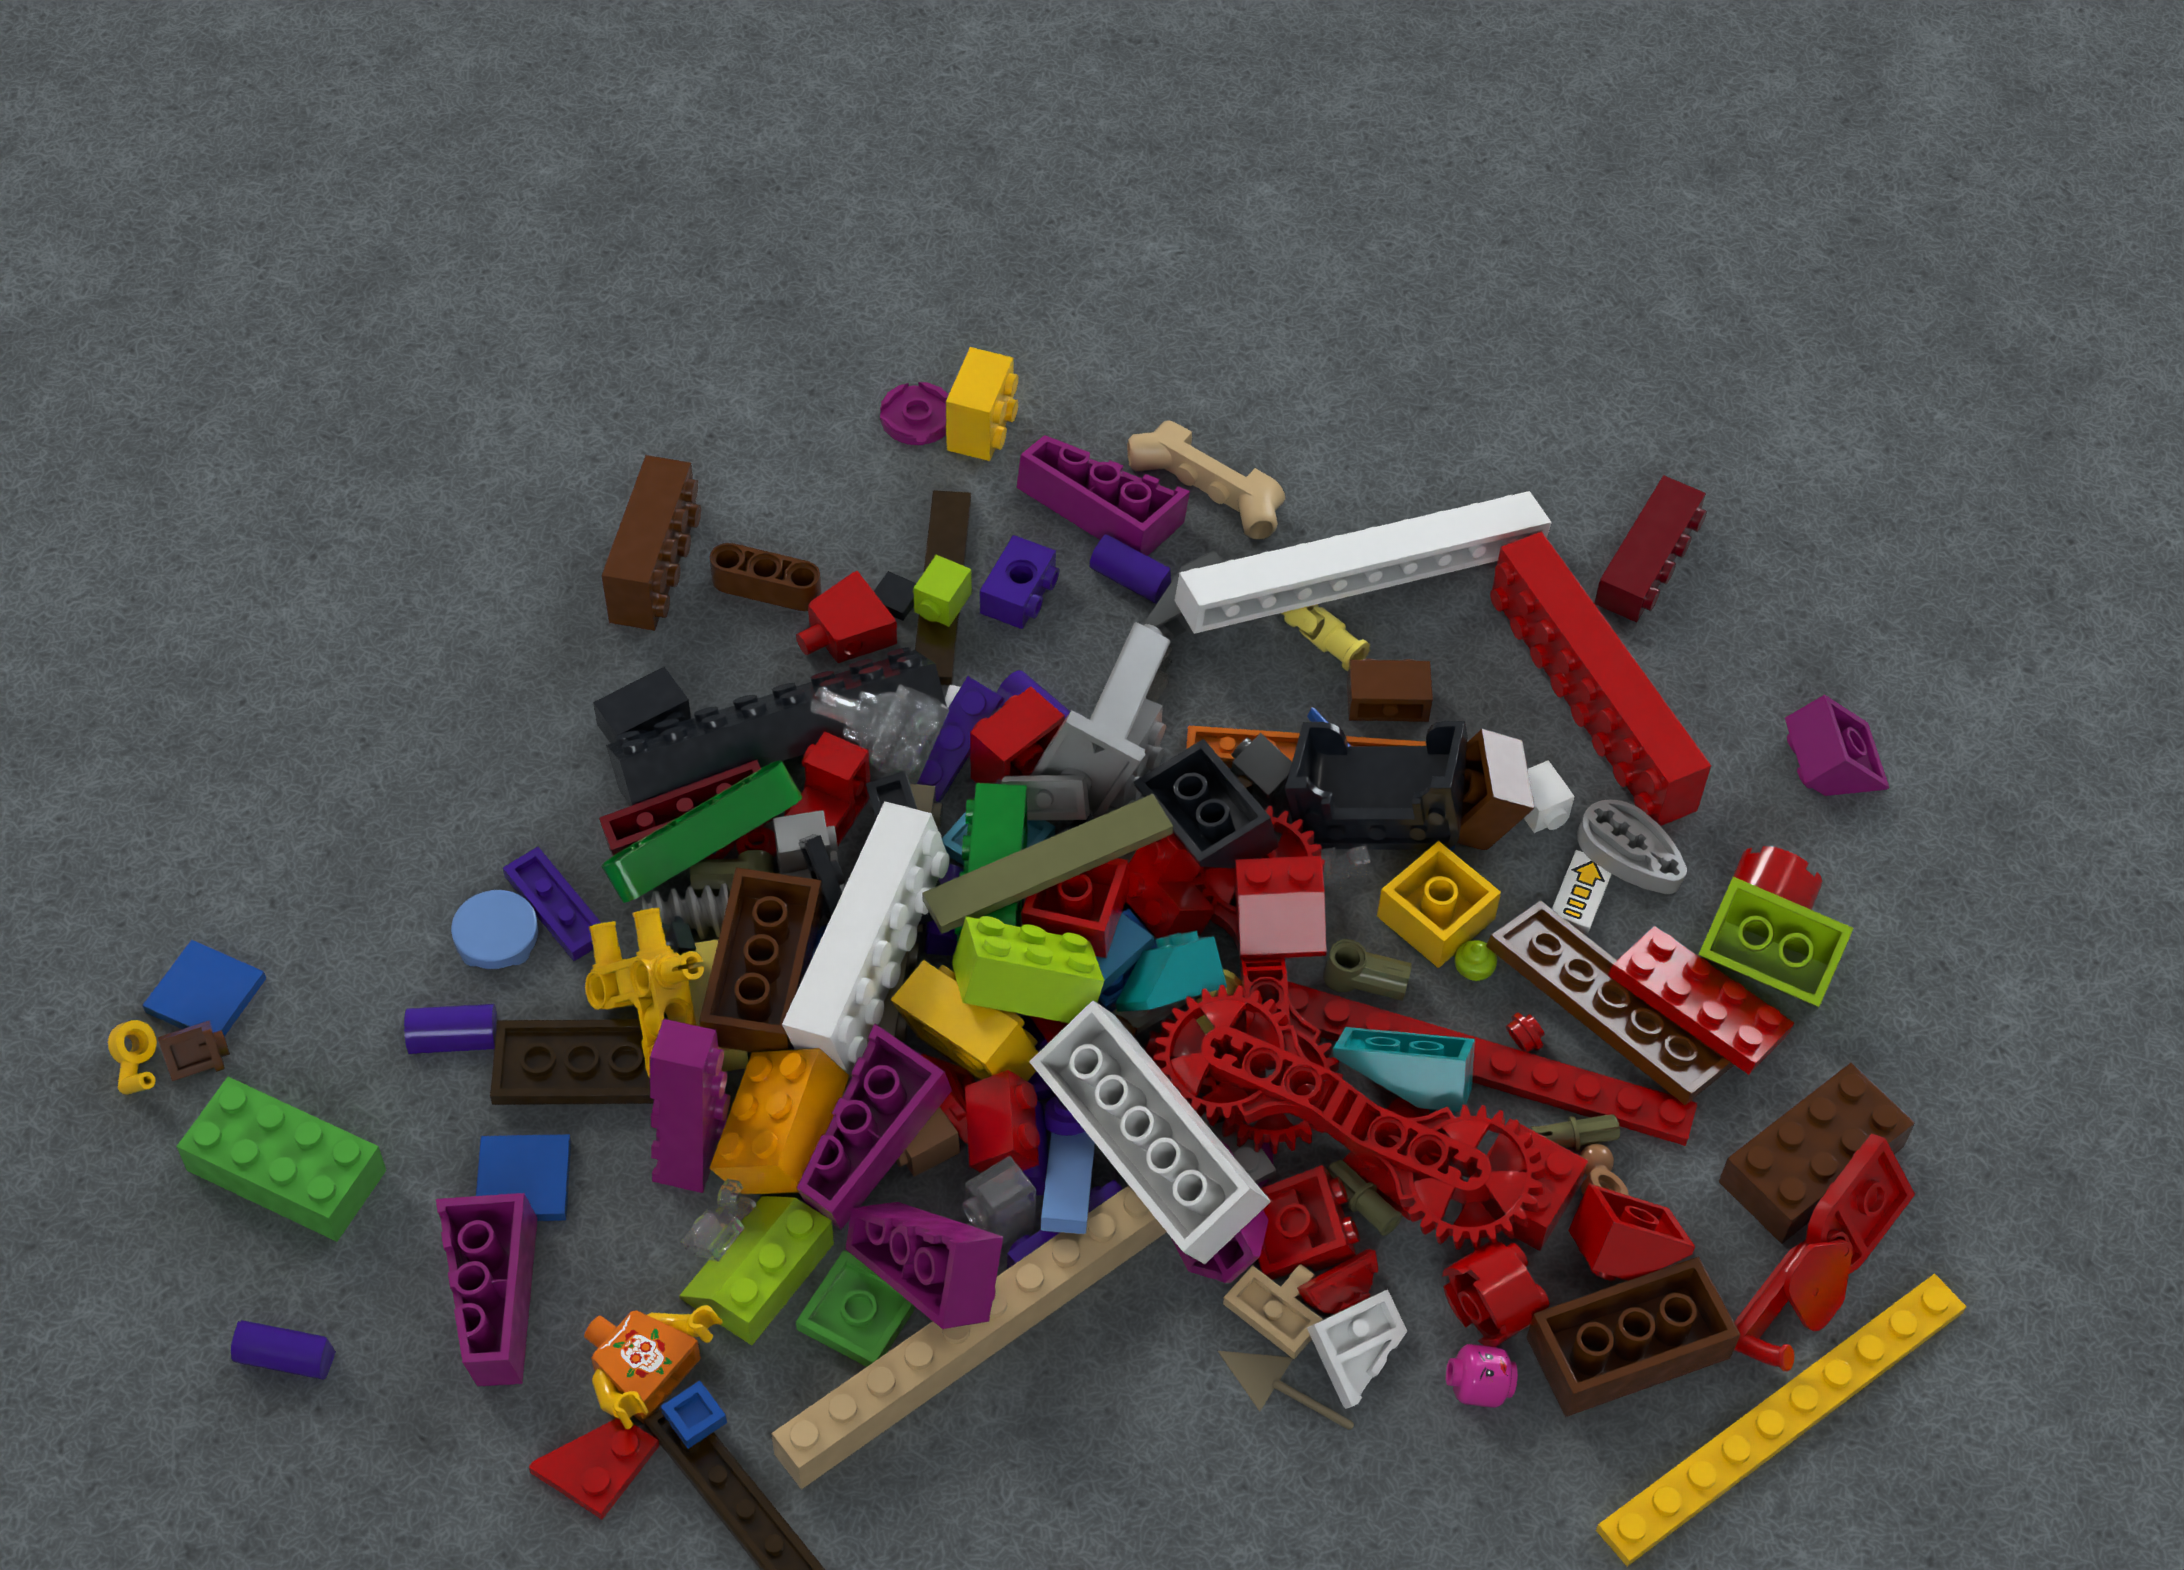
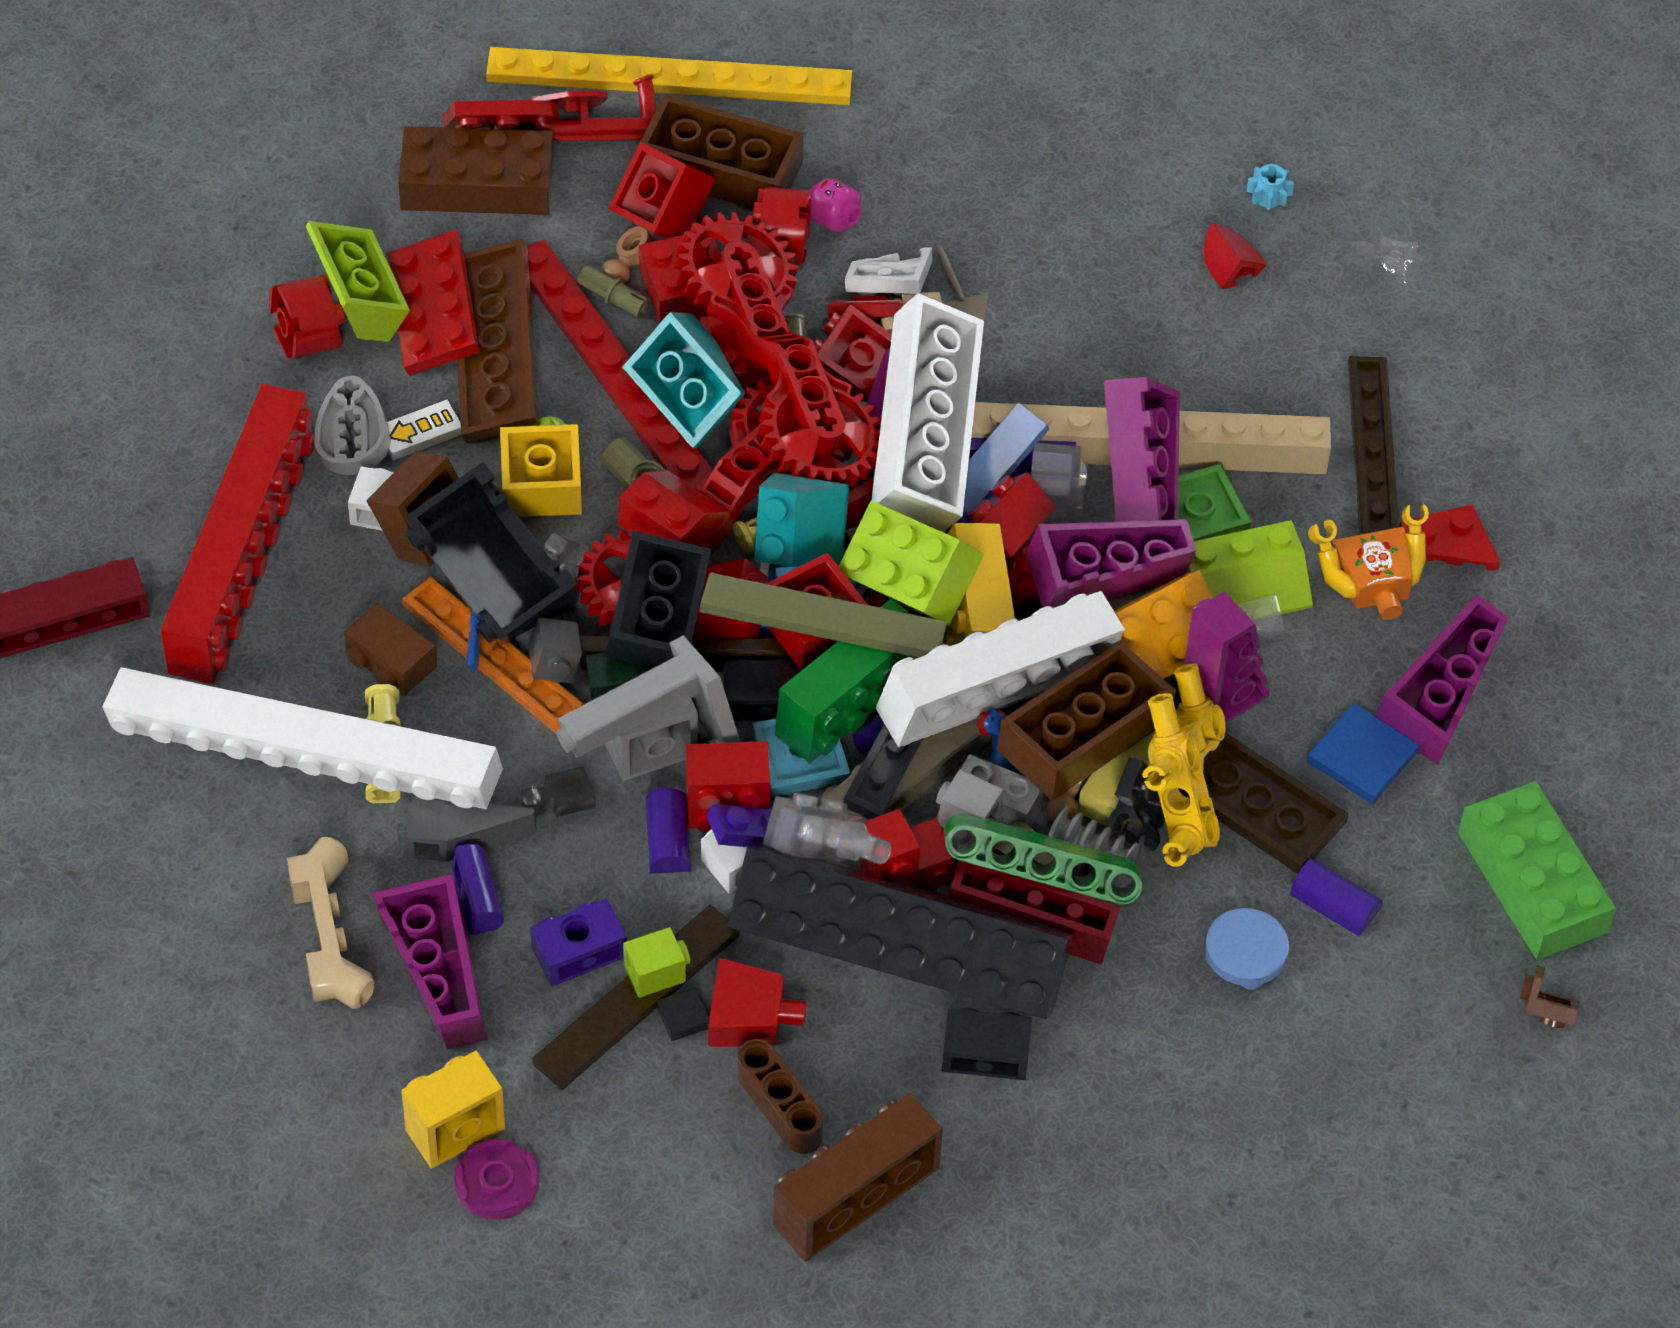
camera: 140 degrees left, 0 degrees up
(143, 1048) = (1599, 1043): yellow plate -> none
(204, 988) = (1509, 1059): blue tile -> none
(282, 1350) = (1619, 743): dark purple brick -> none
(553, 901) = (1183, 936): dark purple plate -> none
(694, 1414) = (1369, 505): blue plate -> none
(823, 869) = (984, 748): black plate -> none
(1054, 796) = (753, 721): light grey plate -> none
(1525, 1032) = (573, 366): red plate -> none
(1834, 749) = (129, 383): magenta slope -> none

